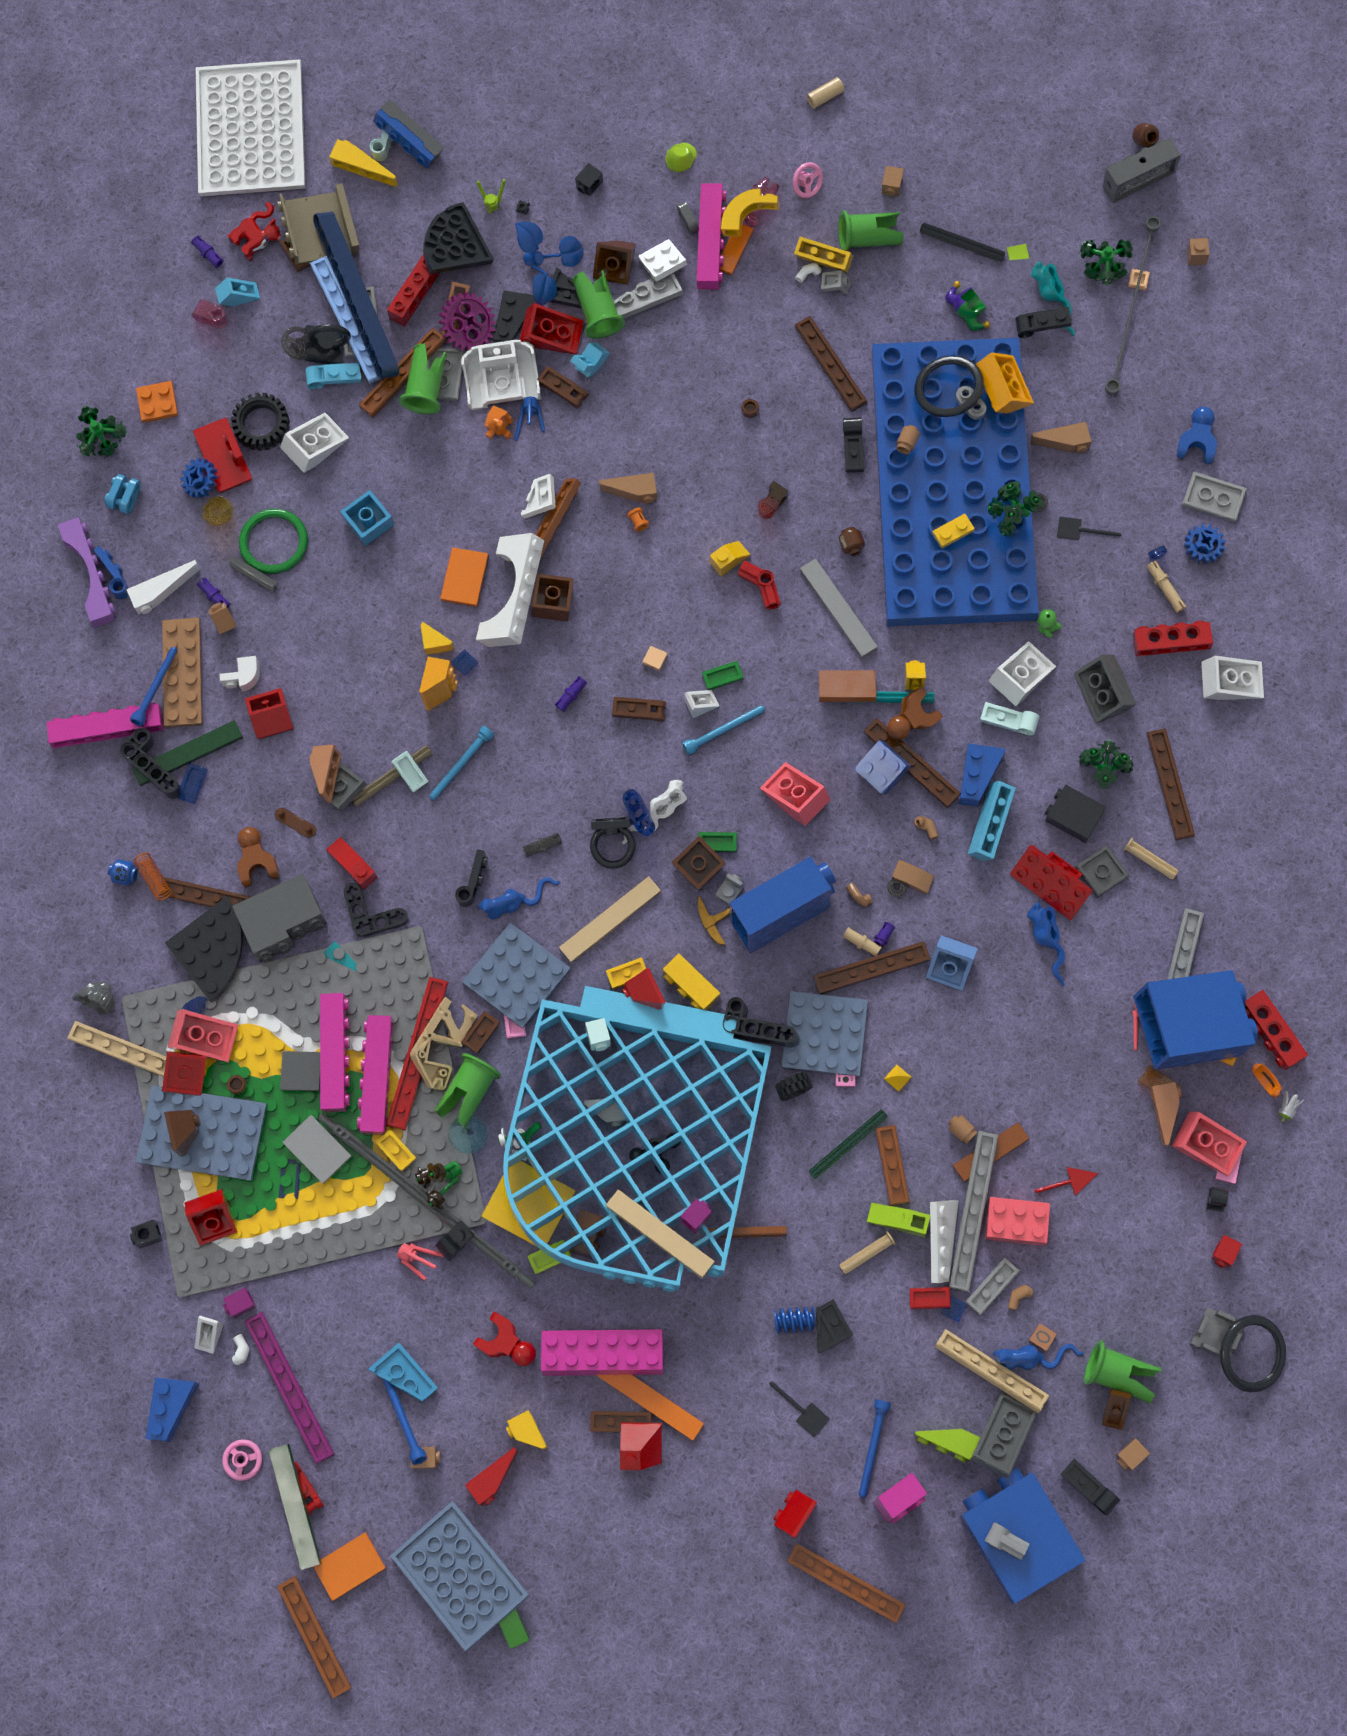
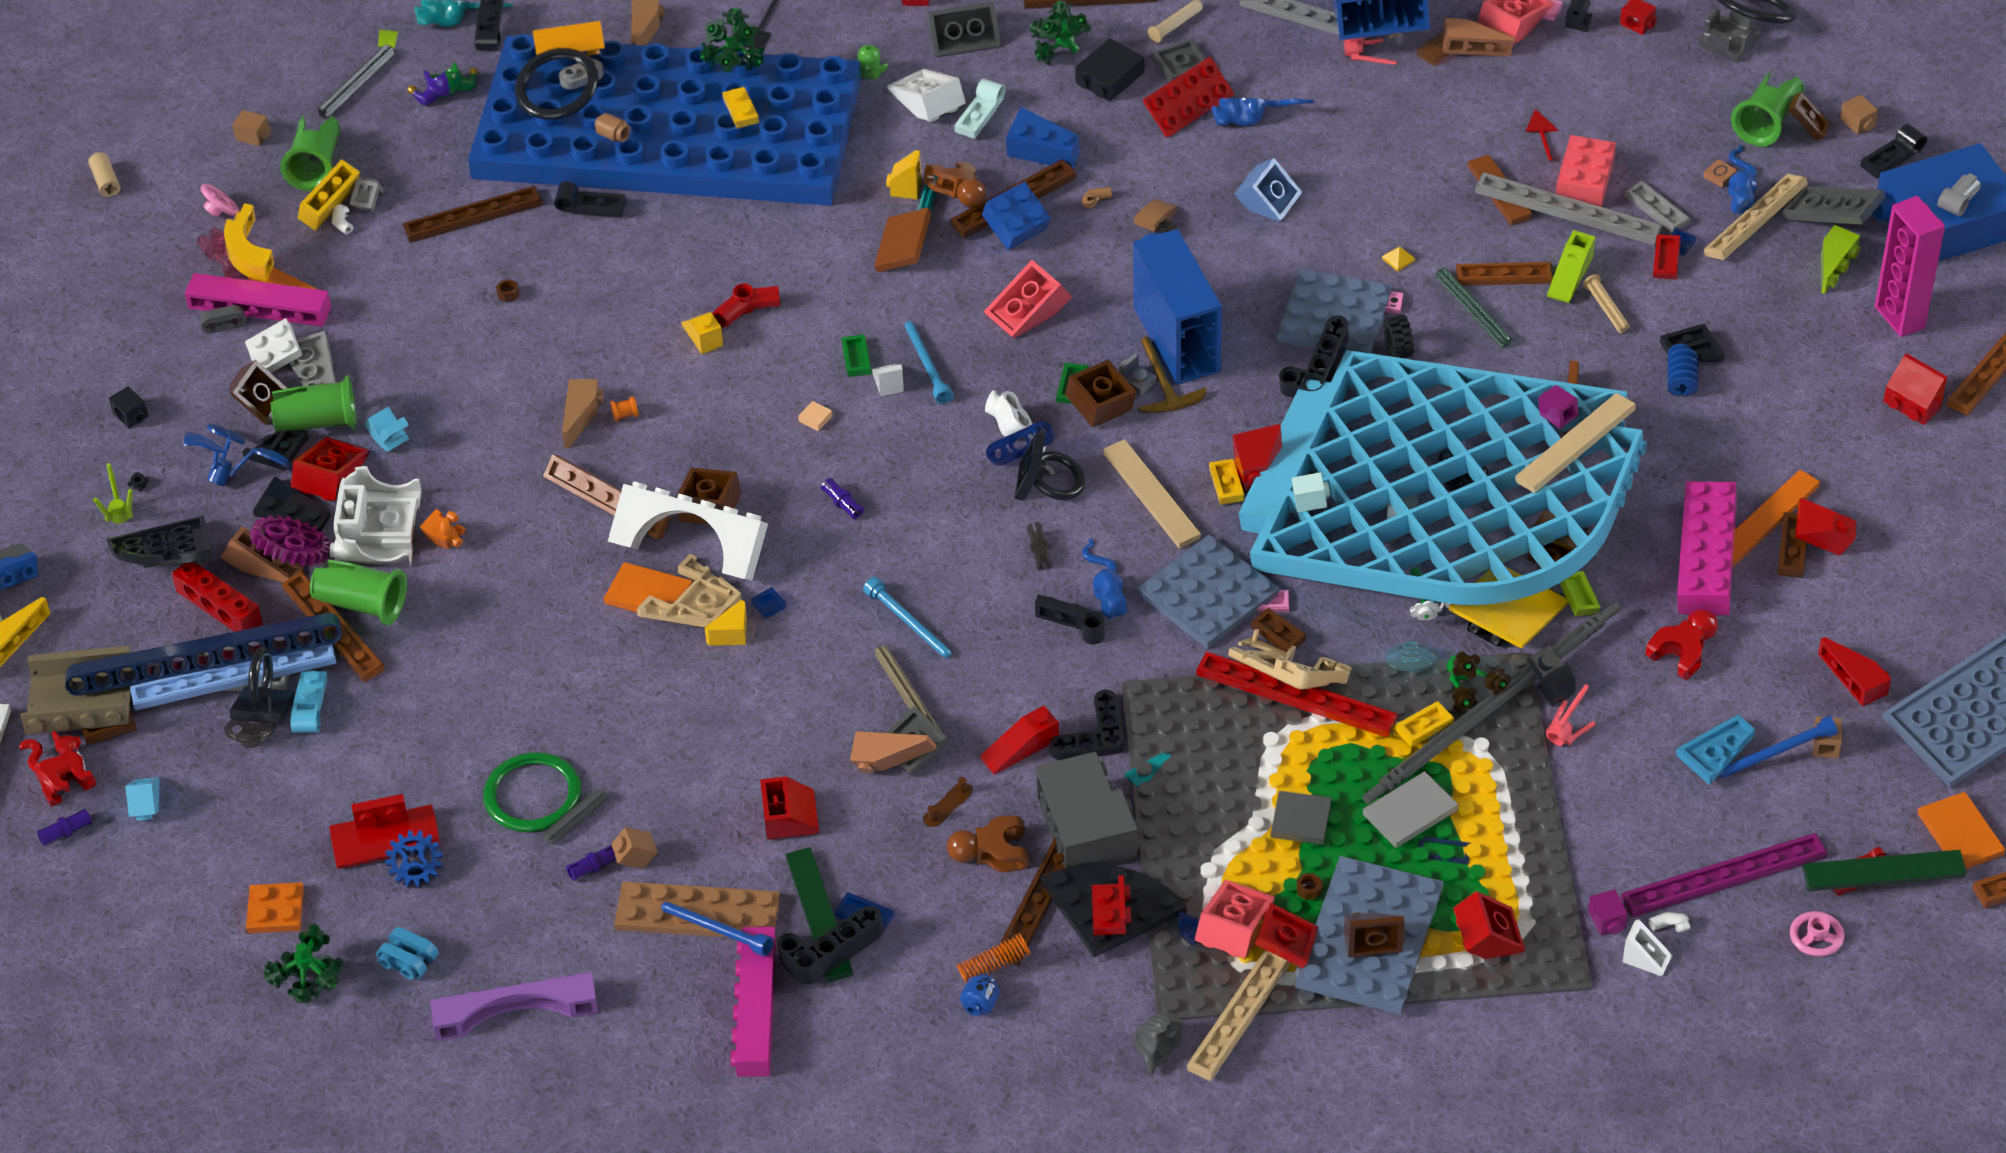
camera: 85 degrees left, 25 degrees down
(115, 571) = (530, 970): blue plate -> none
(154, 591) = (570, 928): white slope -> none
(154, 1234) = (1502, 1000): black brick -> none
(167, 1407) = (1744, 1001): blue wedge -> none
(194, 946) = (1109, 908): none -> red bracket
(210, 314) = (163, 830): clear pink piece -> none
(217, 511) = (470, 842): clear yellow hair -> none
(247, 674) = (721, 831): white brick -> none
(251, 404) = (341, 764): black tyre -> none
(313, 441) = (404, 730): white slope -> none
(334, 1053) = (1274, 773): dark pink brick -> none
(367, 518) = (536, 675): dark azure brick -> none
(376, 1075) = (1320, 733): dark pink brick -> none
(409, 771) = (908, 667): light aqua tile -> none
(437, 682) = (797, 611): light orange slope -> none
(456, 617) = (700, 602): none -> tan wing
(470, 1082) = (1354, 635): bright green piece -> none
(525, 1430) = (1797, 632): yellow slope -> none
(529, 408) = (431, 498): blue plant -> none
(540, 497) = (562, 499): white wing -> none
(562, 387) = (414, 464): reddish brown plate -> none
(638, 708) = (879, 436): reddish brown plate -> none
(680, 157) = (131, 321): lime hat -> none
(690, 983) = (1257, 413): yellow brick -> none
(768, 506) = (639, 280): leg -> none
(811, 1419) = (1798, 377): black piece -> none
(838, 608) = (797, 242): light grey tile -> none
(851, 541) = (717, 215): reddish brown head -> none
(862, 941) = (1227, 266): tan pin -> none
(871, 967) = (1261, 262): reddish brown plate -> none
(881, 1408) = (1793, 312): blue piece -> none
(884, 934) = (1225, 248): dark purple pin -> none
(942, 1224) = (1636, 240): white wing -> none
(962, 1129) = (1470, 205): medium nougat brick -> none
(991, 821) = (1106, 134): medium azure brick -> none
(1018, 1294) = (1669, 186): medium nougat arm -> none

